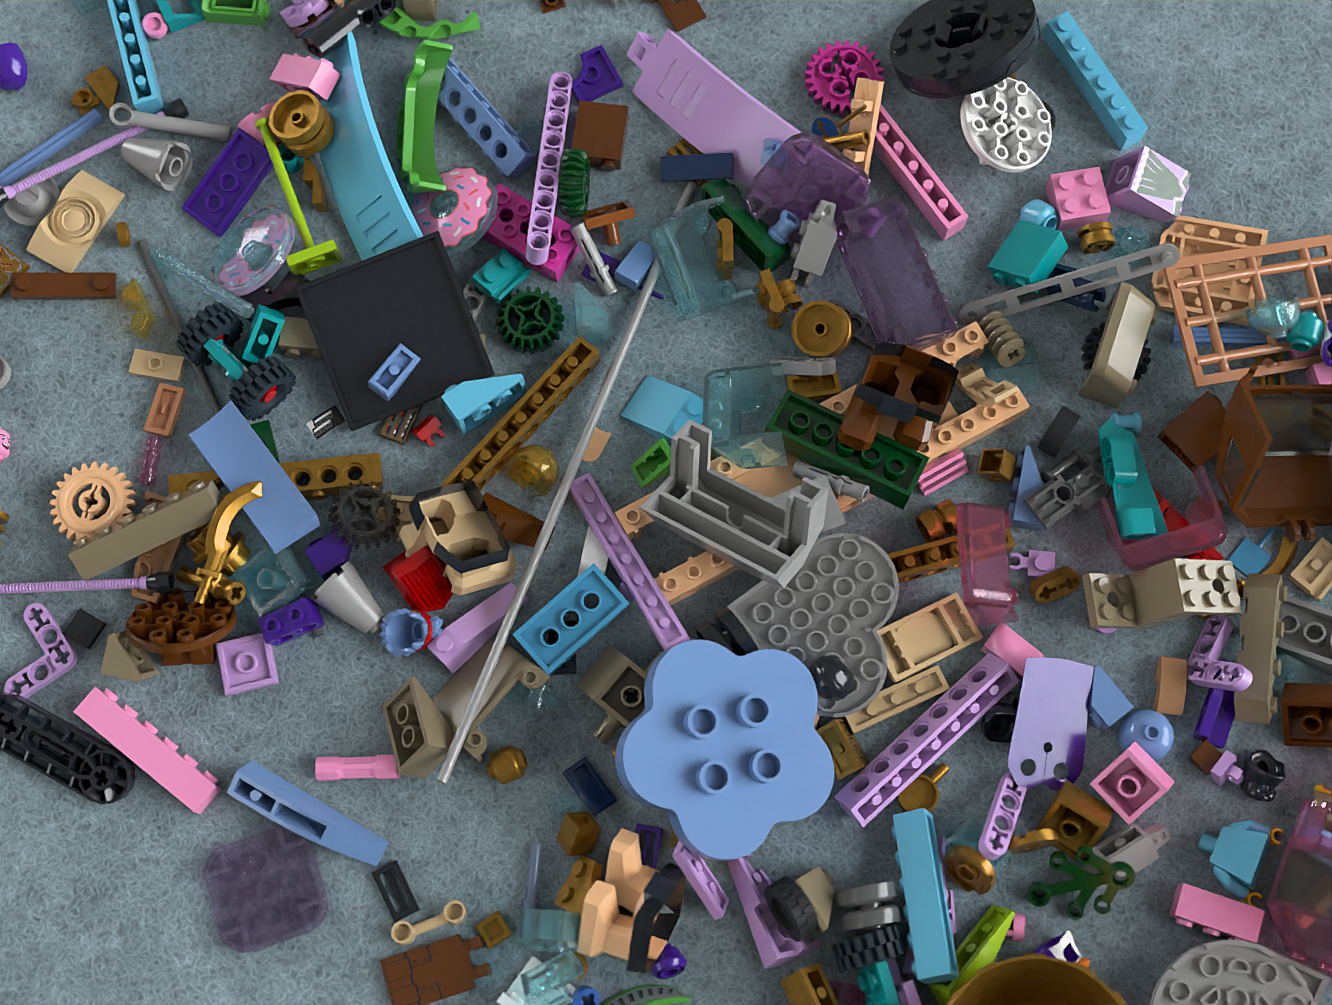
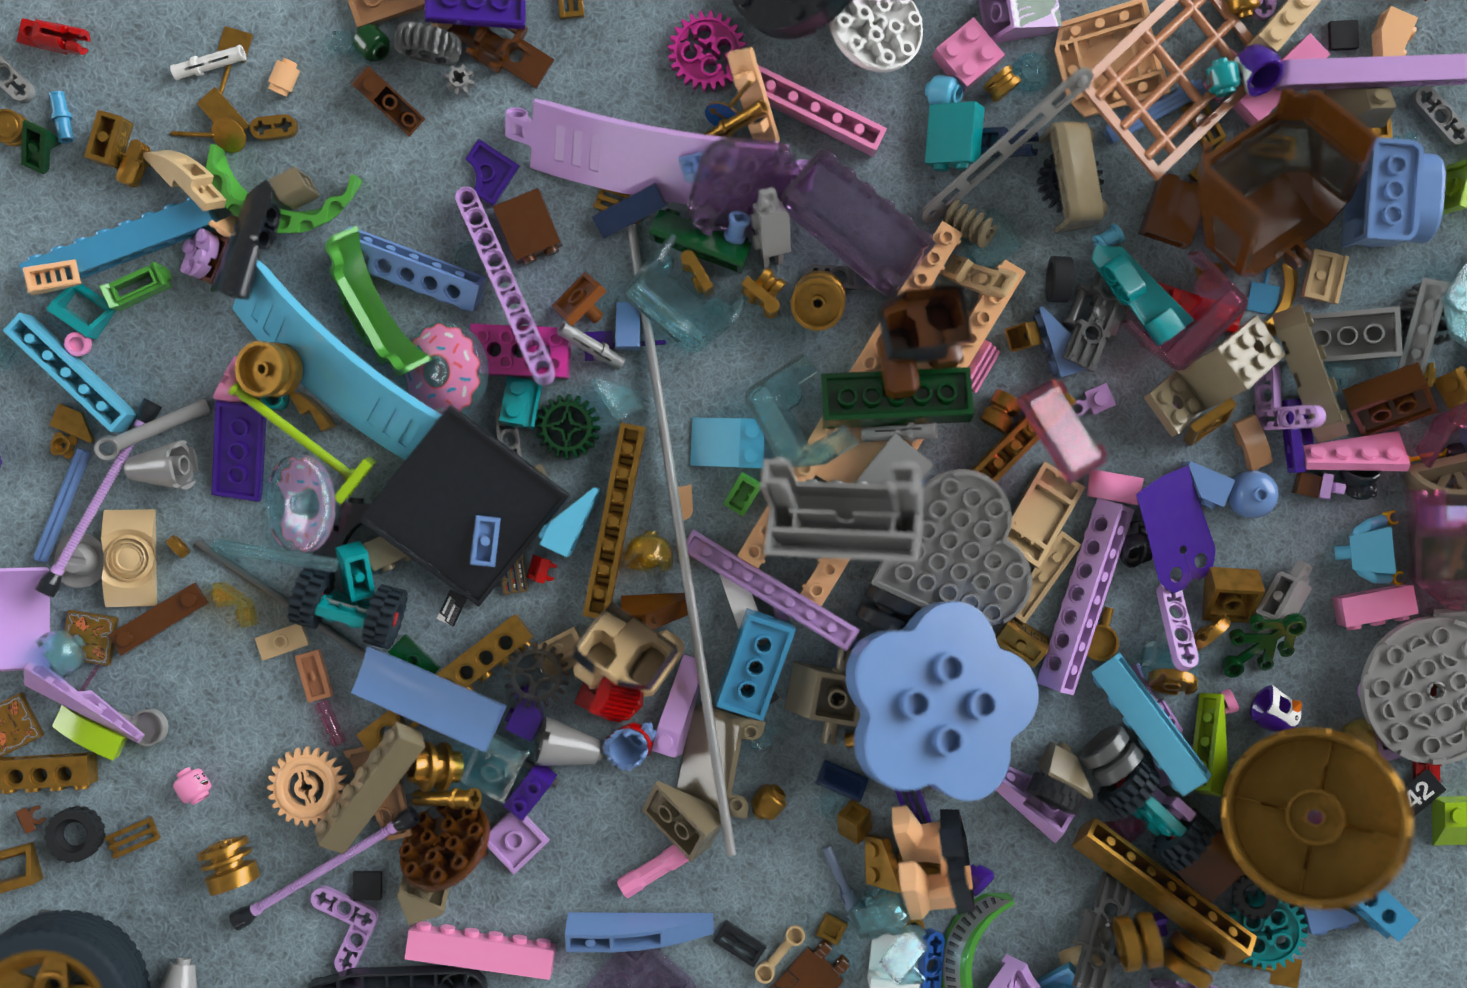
camera: 30 degrees left, 15 degrees up
(218, 532) = (430, 764): pearl gold sword -> none
(305, 74) = (242, 319): bright pink brick -> none
(574, 182) = (534, 287): dark green gear -> none
(702, 880) = (977, 810): lavender tile -> none
(806, 365) = (820, 341): light grey beam -> none
(814, 386) = (838, 353): pearl gold tile -> none
(831, 678) = (988, 596): black hair -> none
(1055, 584) = (1120, 410): pearl gold beam -> none
(1132, 783) = (1264, 542): bright pink brick -> none
(1136, 638) = (1210, 422): none -> pearl gold tile
(1274, 315) = (1192, 78): clear light blue cylinder -> none
(1279, 755) = (1362, 453): none -> bright pink wing

